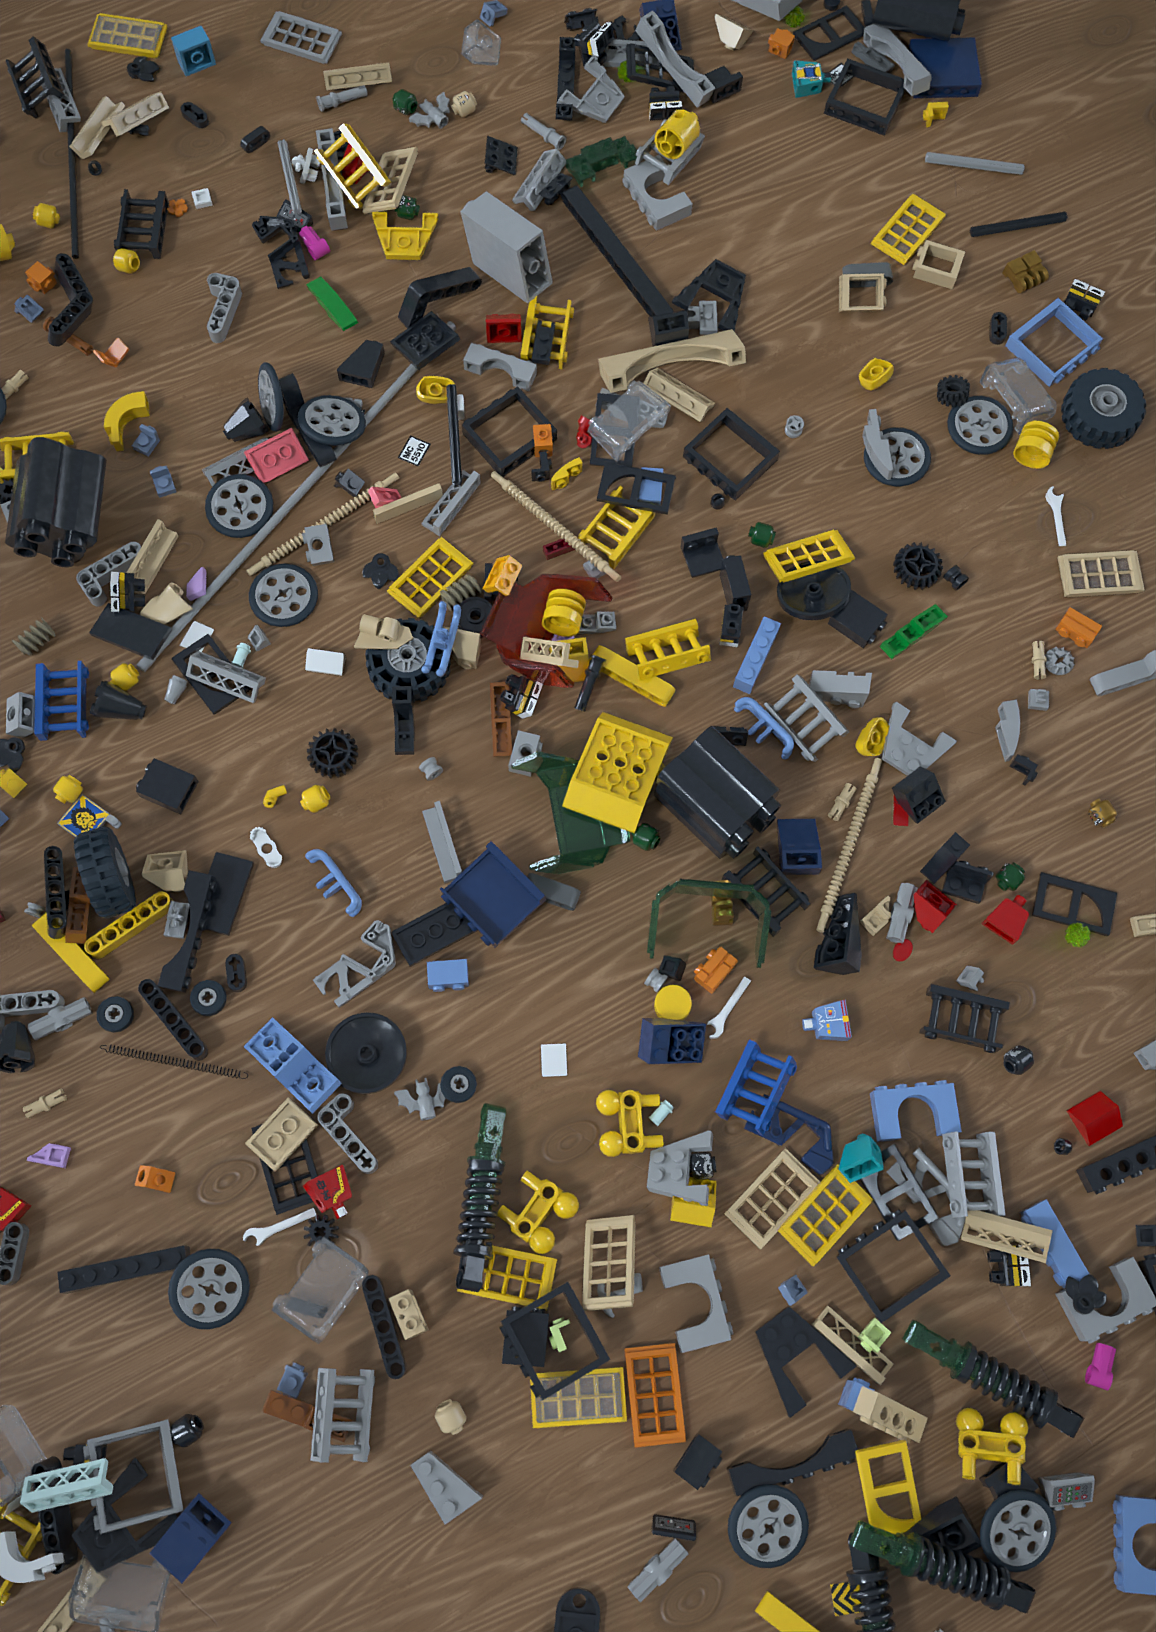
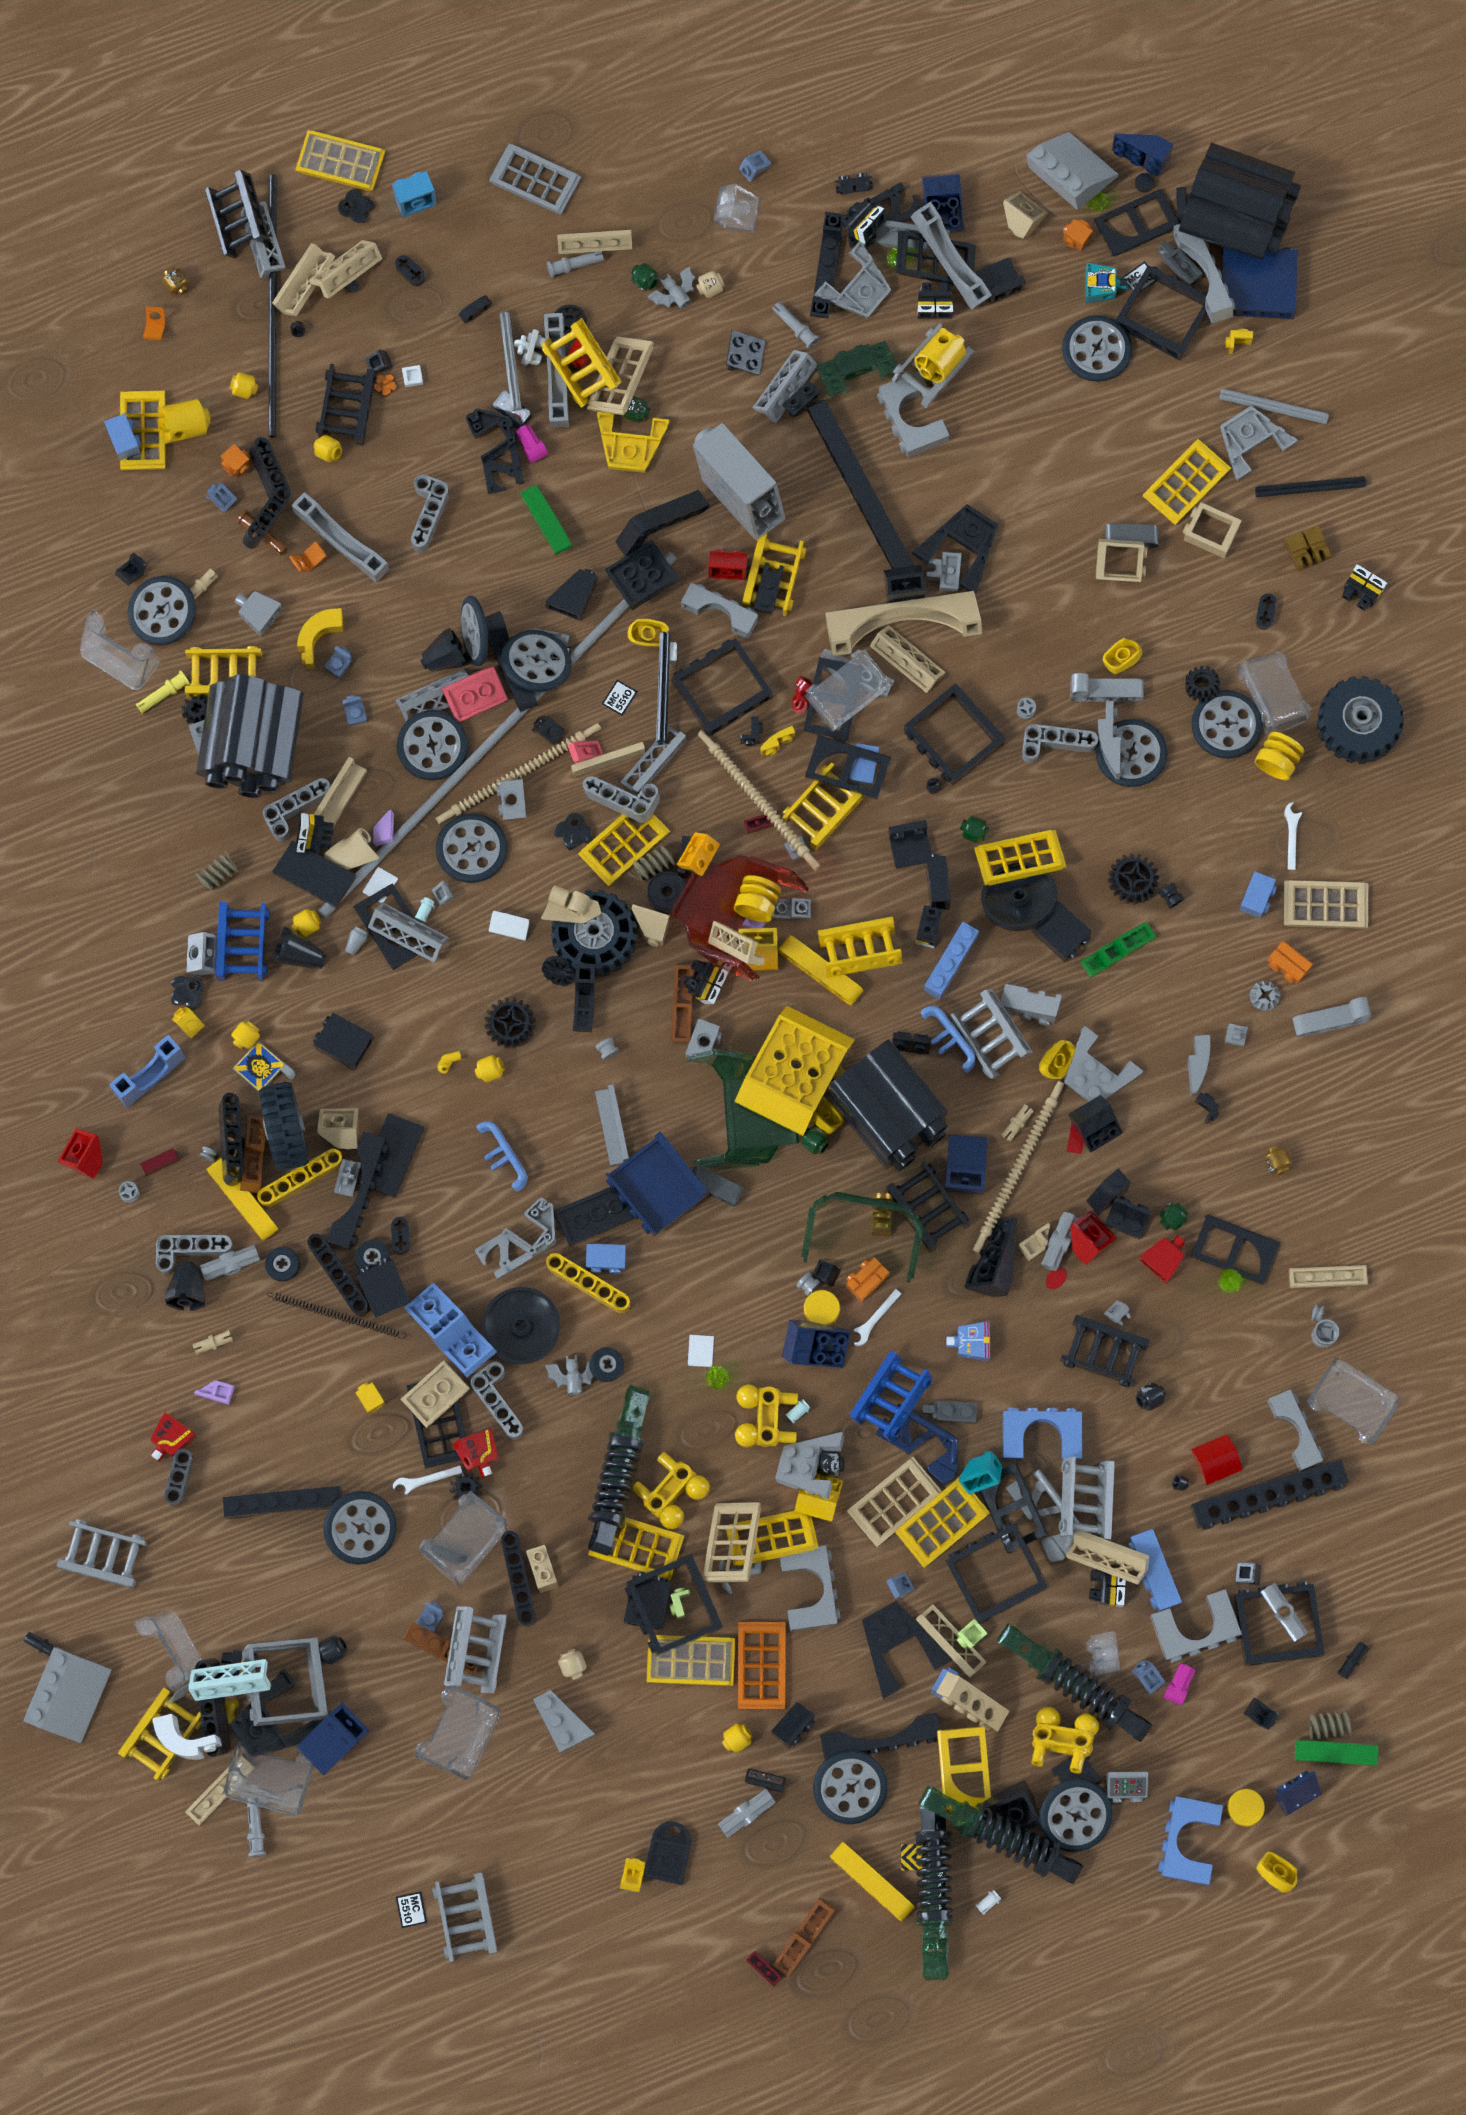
camera: 10 degrees right, 5 degrees up
(67, 402) = (258, 611): none -> light grey torso
(76, 1512) = (231, 1706): none -> yellow arm
(155, 1178) = (313, 1423): orange bracket -> none
(162, 347) = (352, 549): none -> light grey arch
(171, 188) = (379, 361): none -> black slope
(213, 1145) = (370, 1397): none -> yellow brick
(219, 1027) = (383, 1287): none -> black brick
(260, 838) = (432, 1103): white piece -> none
(332, 1515) = (460, 1733): none -> clear windscreen
(376, 698) = (558, 969): none -> black wheel
(421, 537) = (619, 796): none -> light grey beam
(424, 995) = (581, 1276): none -> yellow beam
(442, 639) = (630, 920): medium blue piece -> none
(543, 439) = (756, 701): orange bracket -> none
(574, 1086) = (717, 1377): none -> clear neon green gear
(592, 674) = (779, 966): black pin -> none
(638, 1482) = (737, 1738): none -> yellow head
(655, 813) = (827, 1117): none -> yellow piece
(687, 1239) = (807, 1528): none -> yellow piece
(803, 146) = (1084, 368): none -> wedge
(819, 1096) = (952, 1411): none -> dark grey hinge
(851, 450) = (1060, 741): none -> light grey beam
(858, 405) = (1102, 690): none -> light grey beam
(955, 184) = (1248, 431): none -> light grey wing
(1019, 1342) = (1104, 1654): none -> clear slope
(1036, 570) = (1257, 895): none -> medium blue brick
(1039, 660) = (1243, 993): tan pin -> none
(1066, 1360) = (1148, 1676): none -> sand blue bracket
(1071, 321) = (1330, 595): medium blue window -> none
(1085, 1290) = (1174, 1614): black plate -> none

